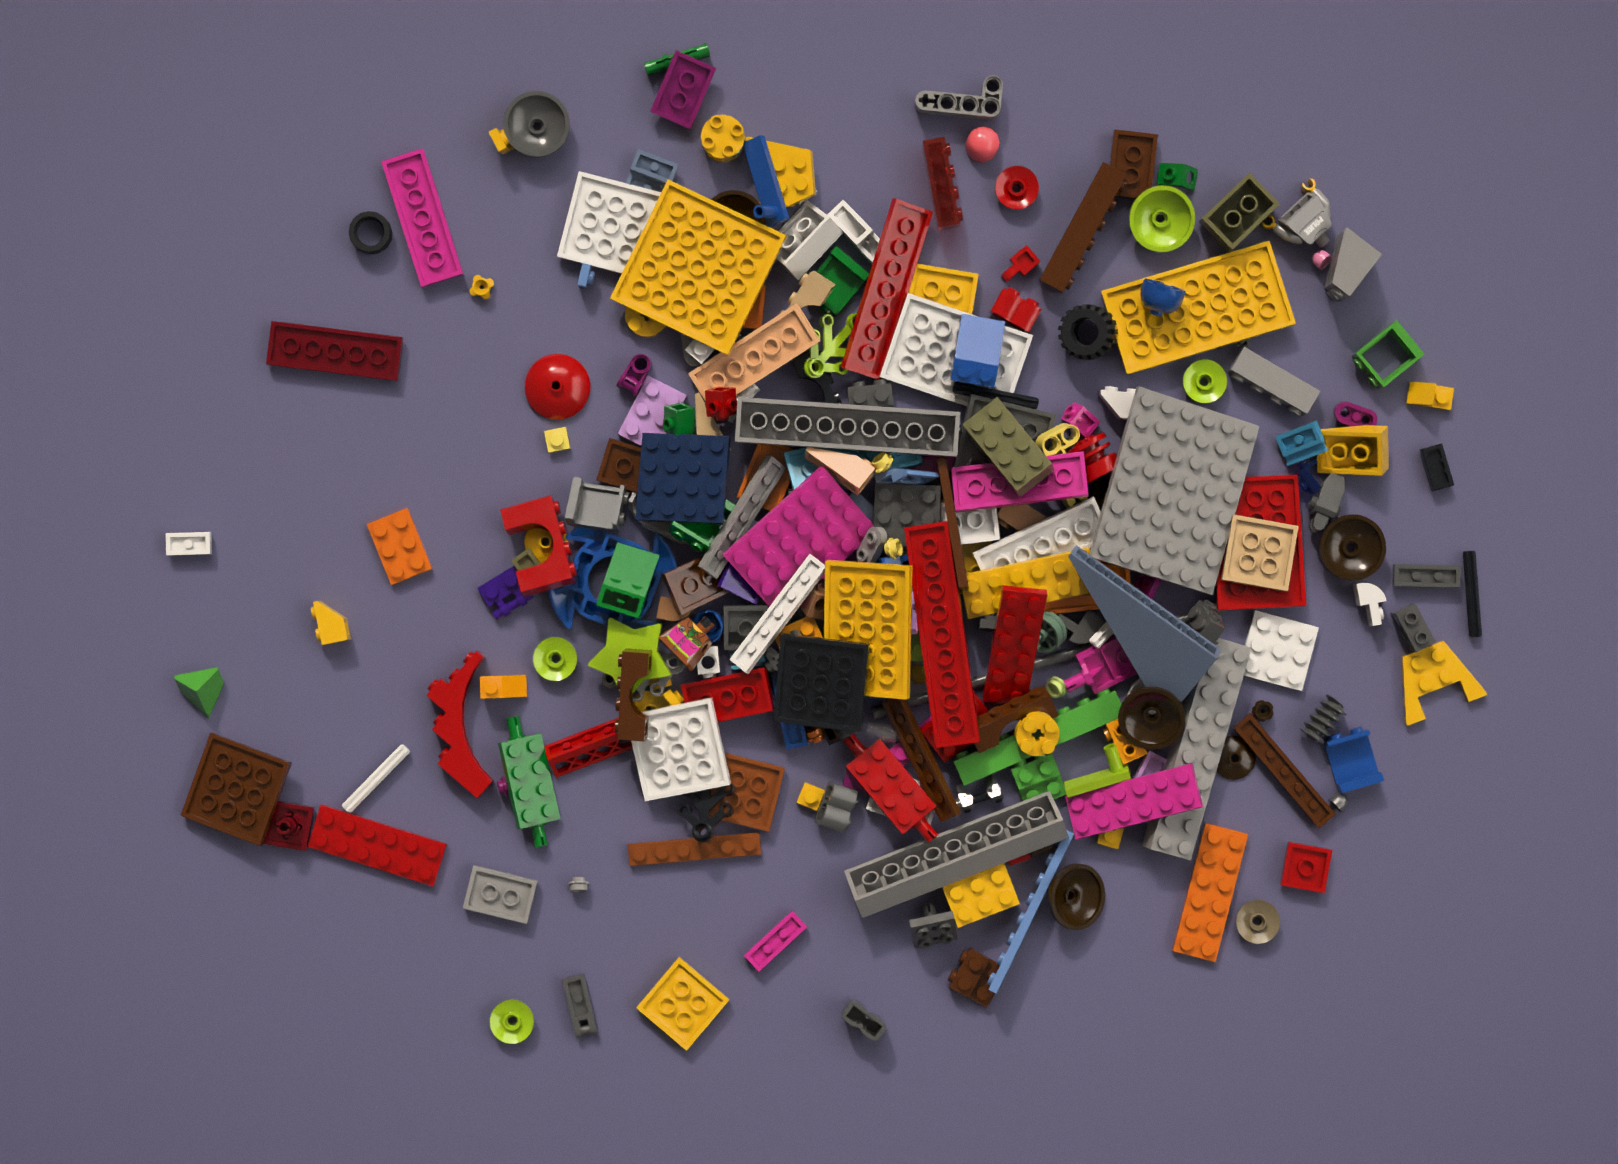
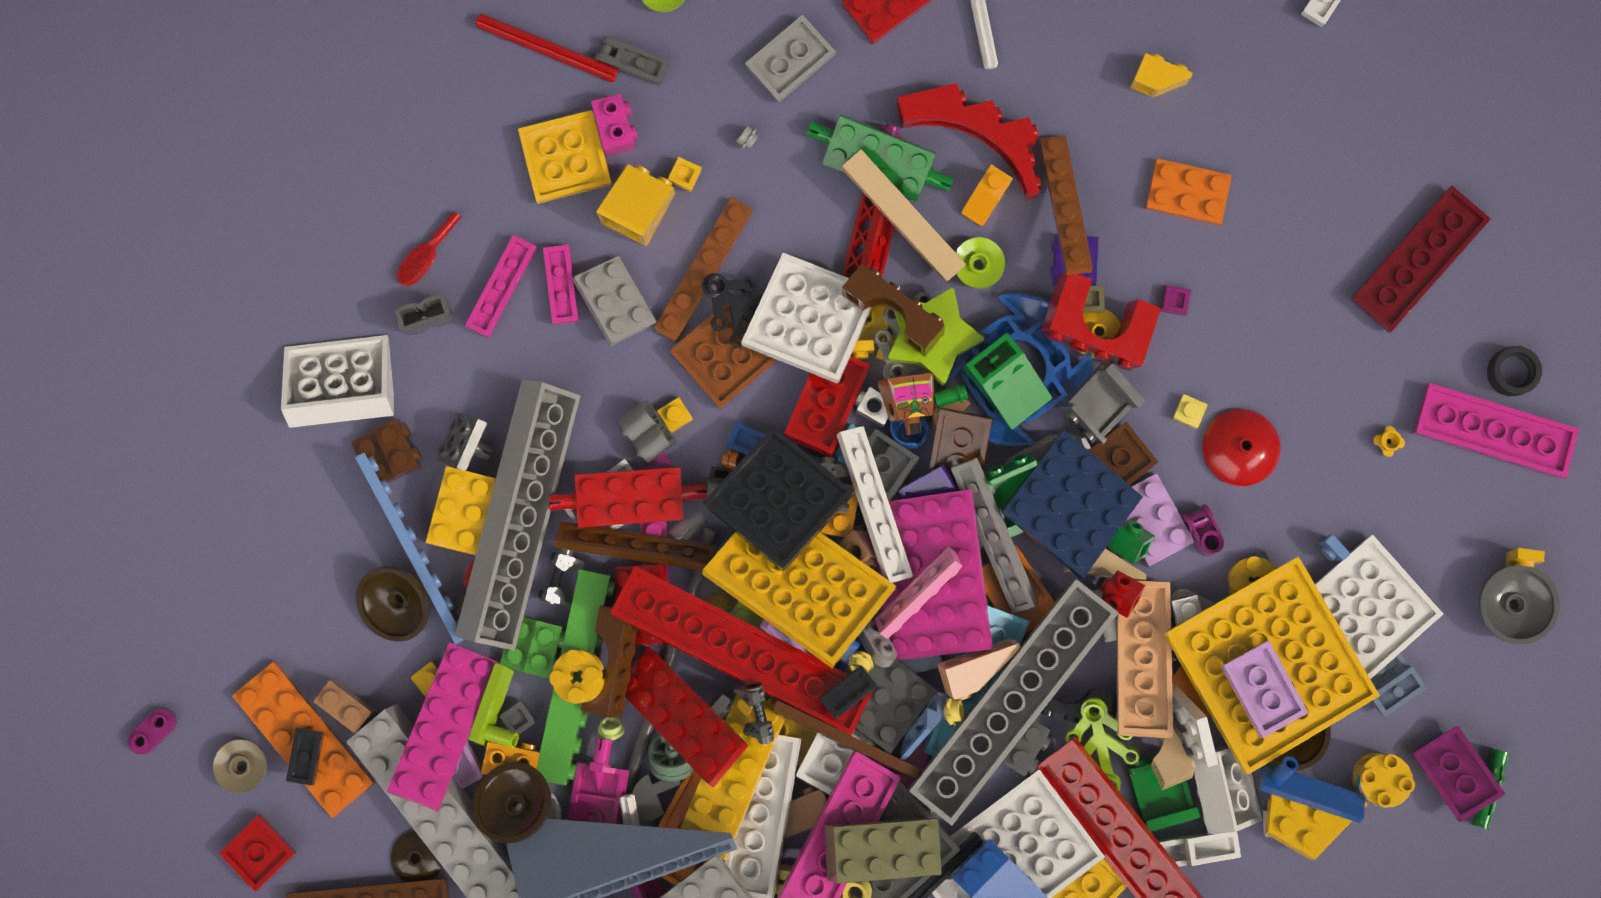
camera: 125 degrees right, 5 degrees down
(472, 626) = (1065, 205): none -> dark orange plate
(484, 503) = (1175, 300): none -> magenta tile
(560, 734) = (903, 216): none -> tan tile
(613, 1073) = (546, 47): none -> red axle
(635, 985) = (613, 124): none -> dark pink brick
(636, 910) = (684, 174): none -> yellow plate
(665, 613) = (950, 395): none -> green pin
(681, 928) = (636, 204): none -> yellow slope
(720, 262) = (1264, 689): none -> lavender plate
(760, 895) = (614, 301): none -> light grey plate
(780, 294) = (1193, 727): none -> white plate
(806, 981) = (501, 286): none -> dark pink plate
(819, 542) = (918, 592): none -> bright pink plate
(823, 1052) = (423, 256): none -> red piece
(920, 543) = (847, 692): none -> black plate
(951, 1047) = (337, 381): none -> white slope
(985, 585) = (761, 729): none -> dark grey piece
(1093, 755) = (518, 718): none -> dark grey plate
(1167, 878) = (345, 706): none -> medium nougat brick
(1219, 881) = (305, 756): none -> black plate
(1277, 999) = (151, 732): none -> magenta plate

